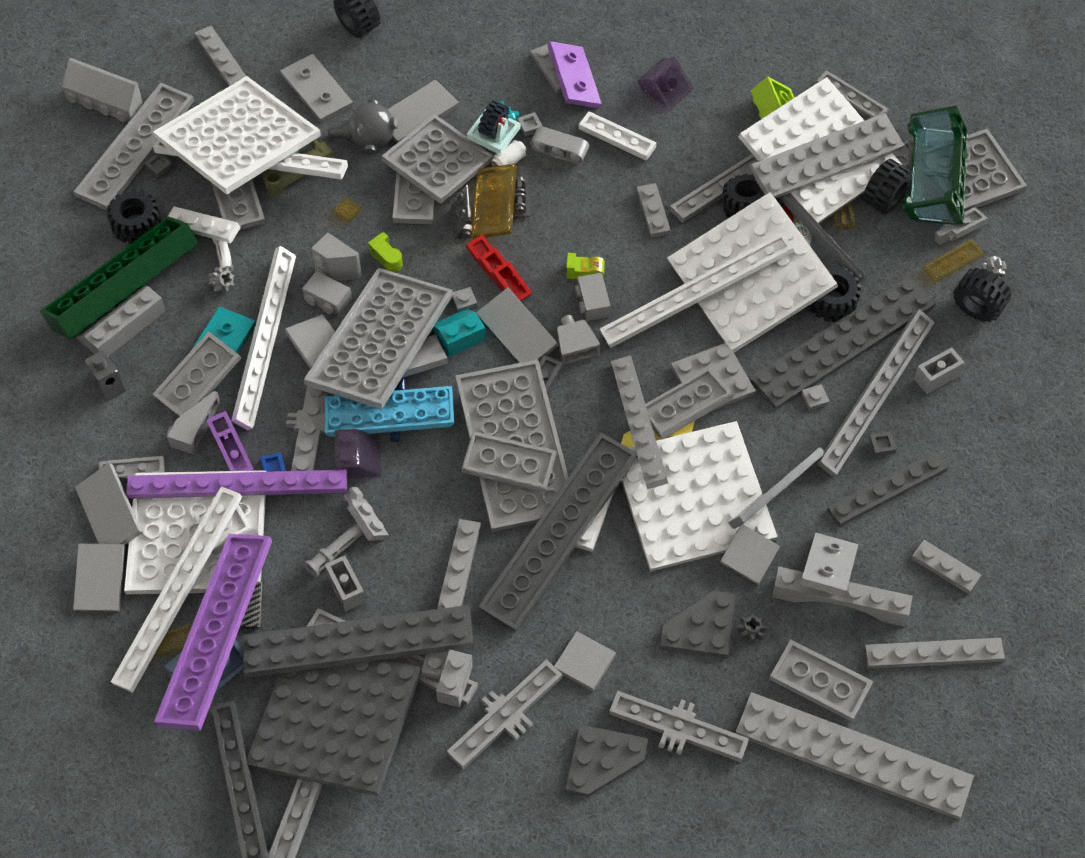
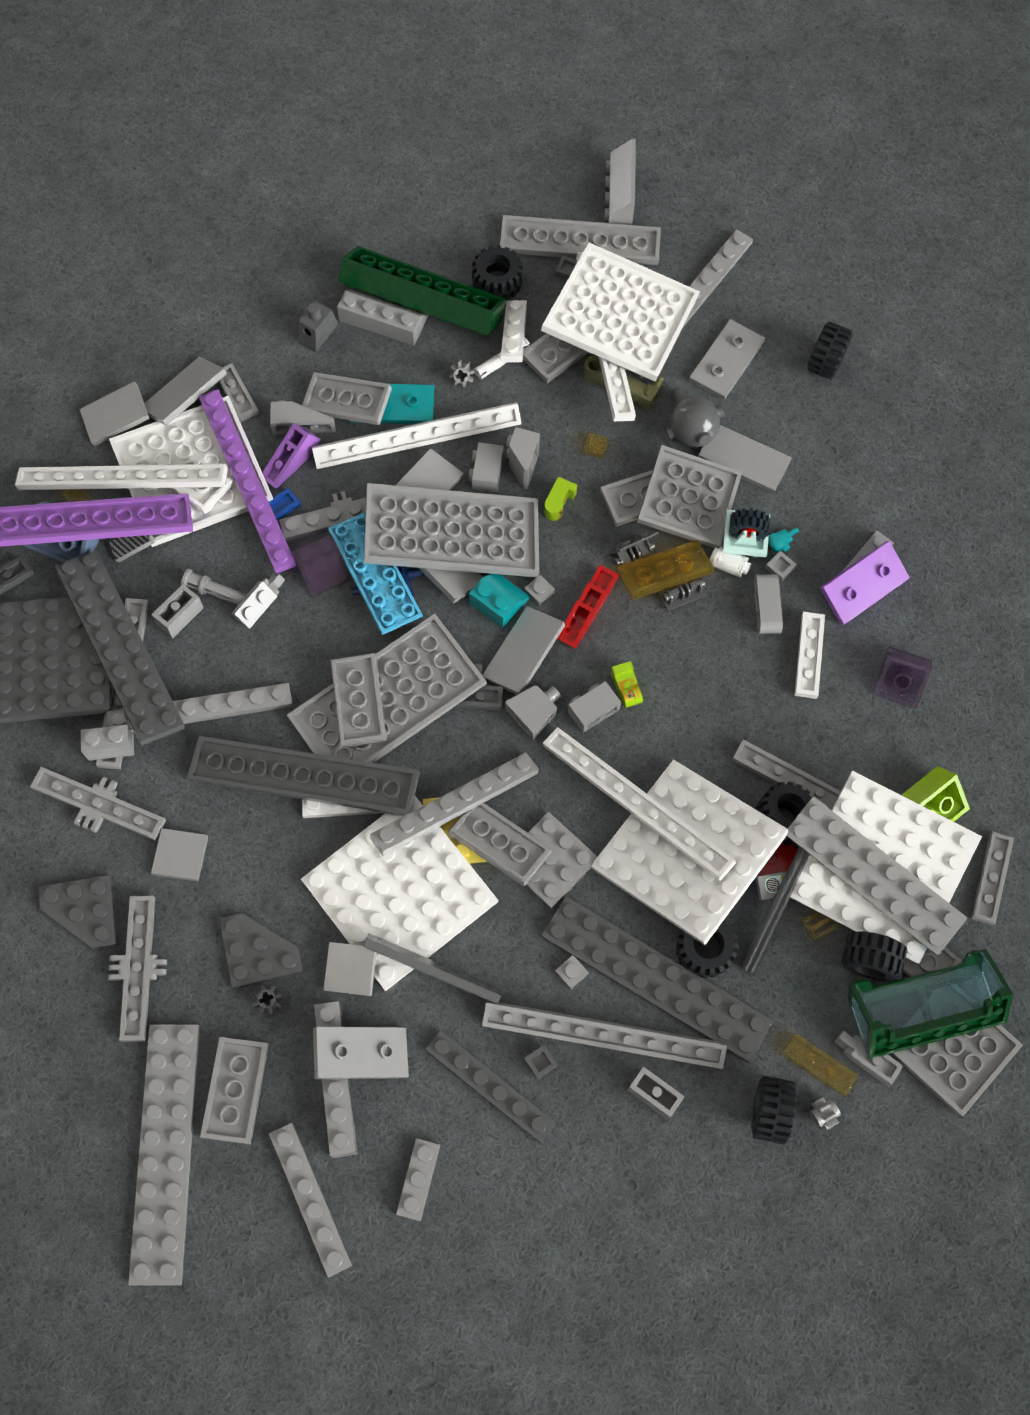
camera: 65 degrees right, 10 degrees up
(653, 210) = (733, 725): light grey plate -> none

